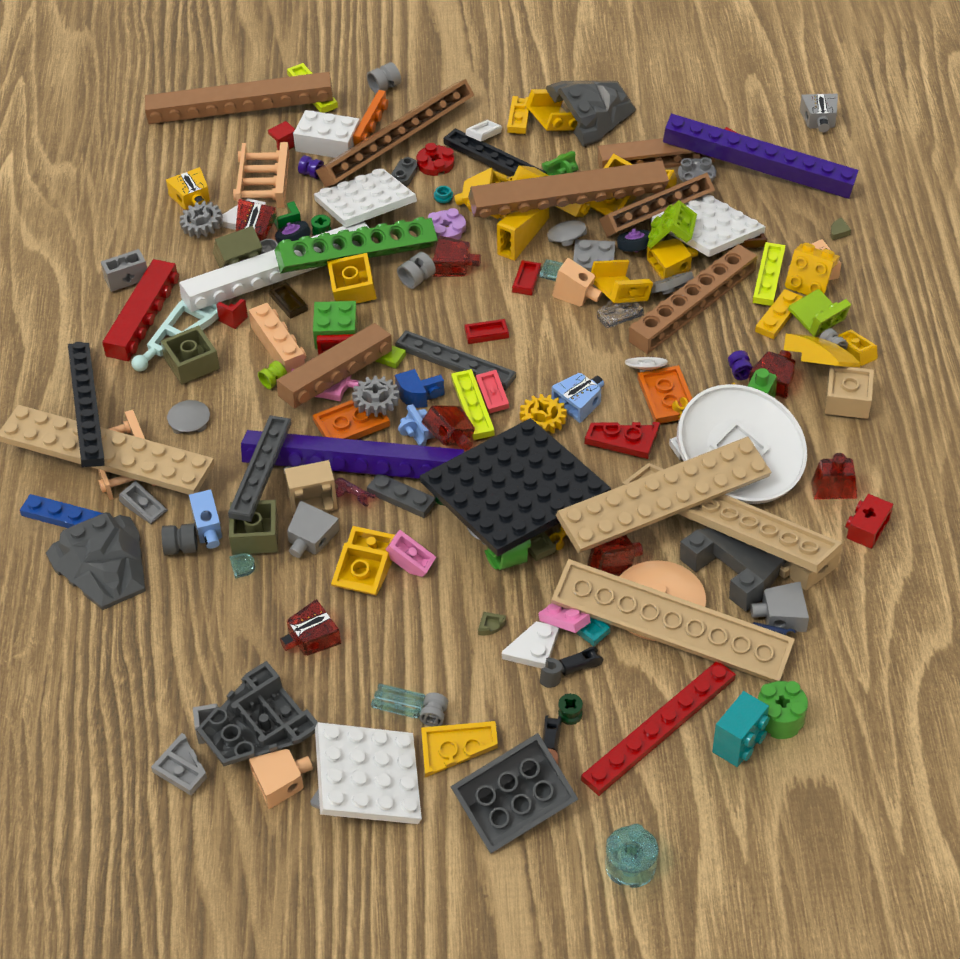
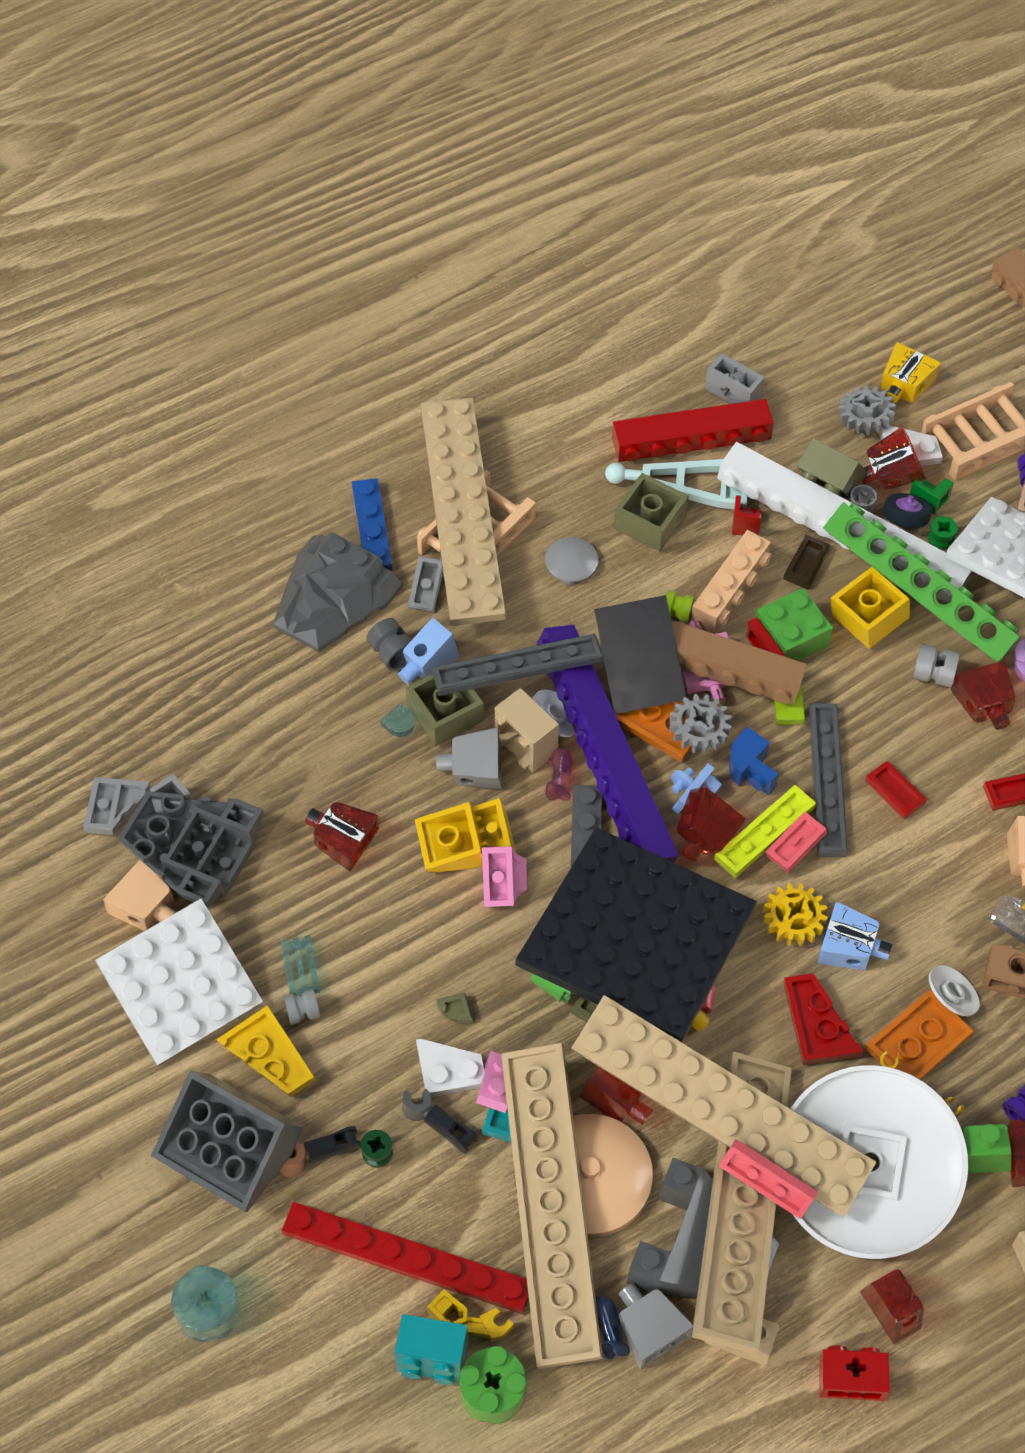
camera: 60 degrees right, 10 degrees up
(85, 405) = (507, 456): black plate -> none
(304, 398) = (640, 654): none -> black sticker
(707, 714) = (481, 1327): none -> yellow piece
(728, 493) = (768, 1179): none -> coral plate

